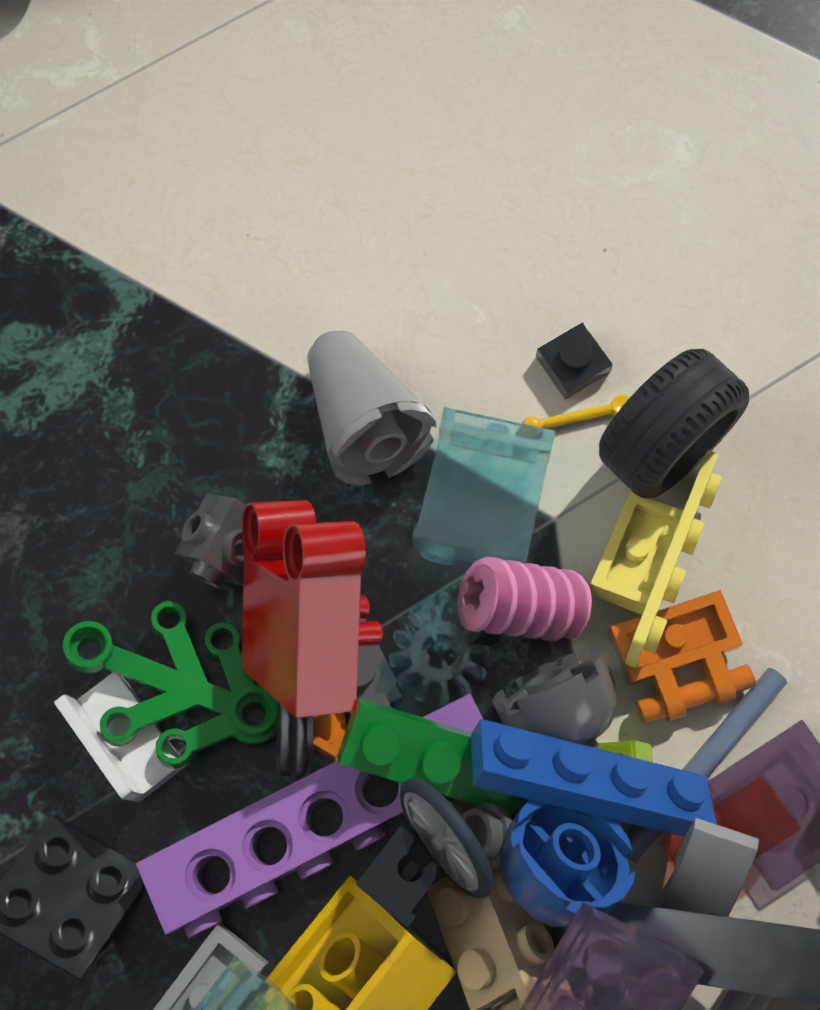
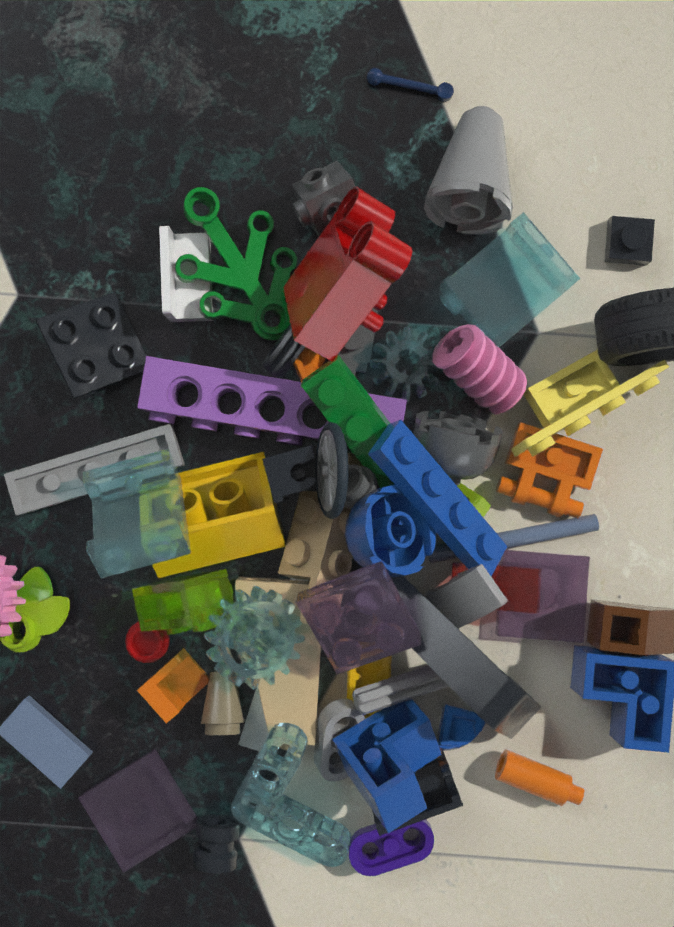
camera: 30 degrees right, 15 degrees up
(270, 350) = (443, 92): none -> dark blue hinge
(577, 416) = (573, 263): yellow hinge -> none

